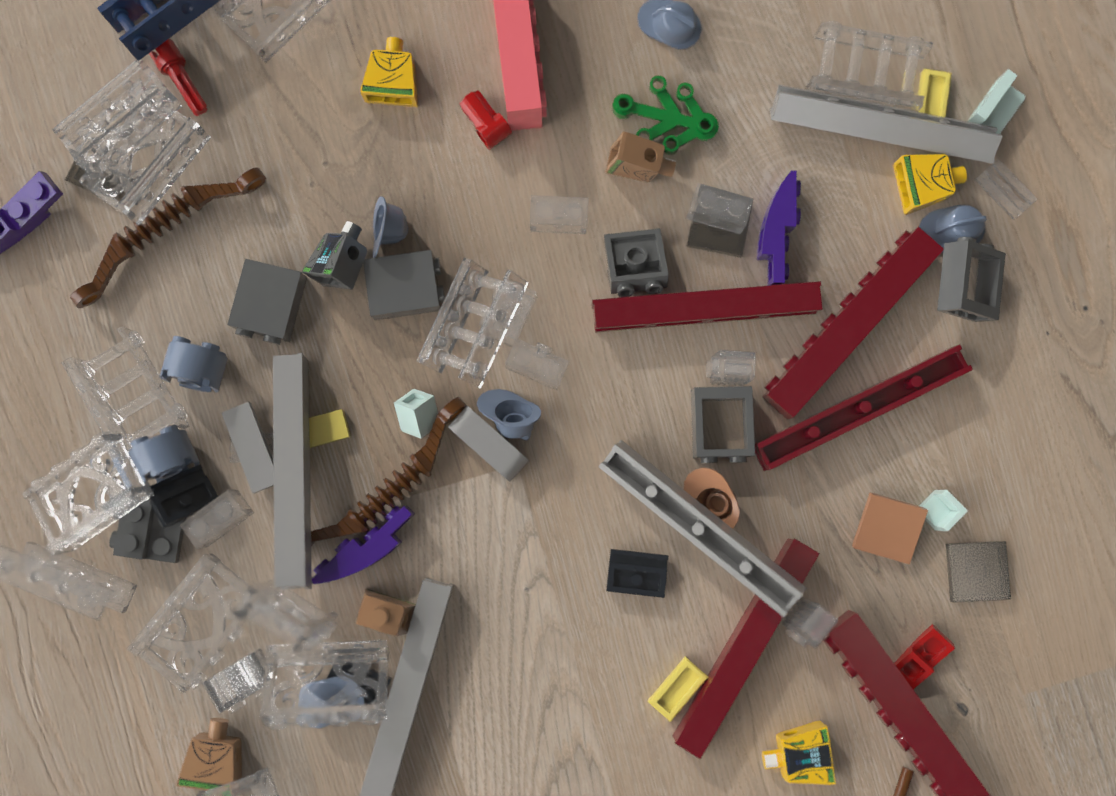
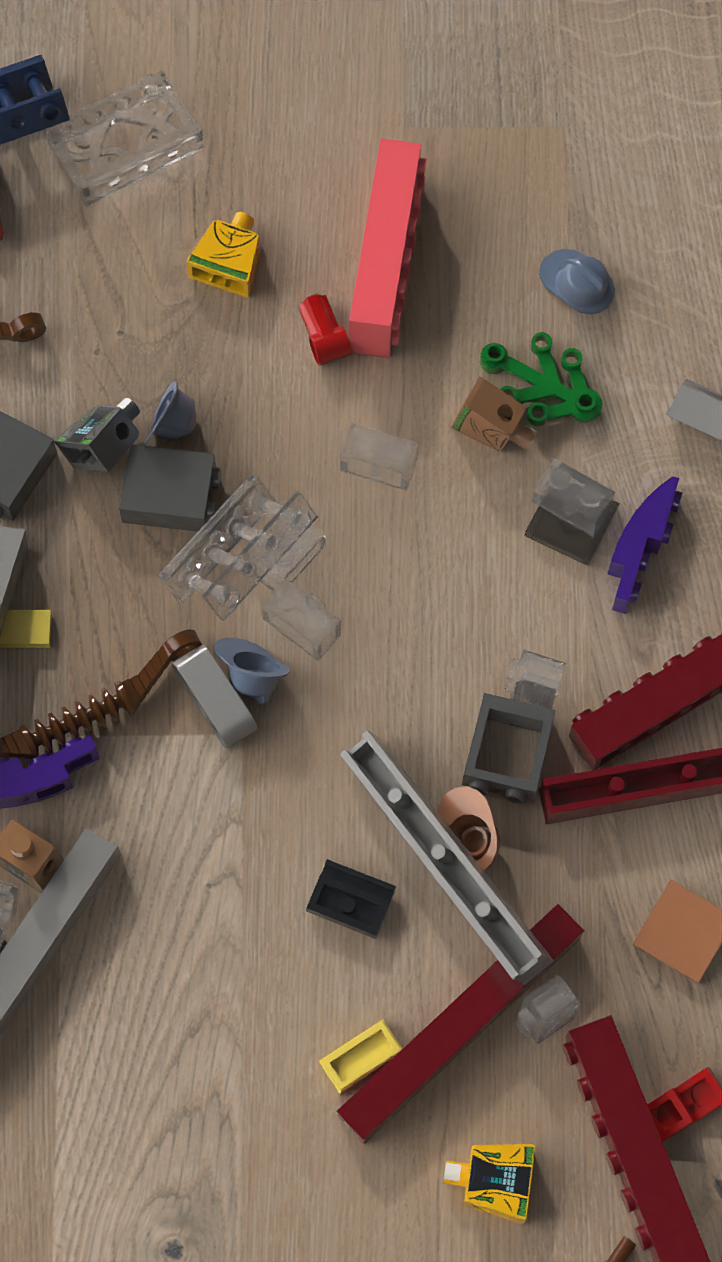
camera: 20 degrees right, 15 degrees down
(416, 413) = (138, 637): light aqua panel -> none
(636, 262) = (456, 535): dark grey plate -> none
(707, 306) = (527, 608): dark red tile -> none

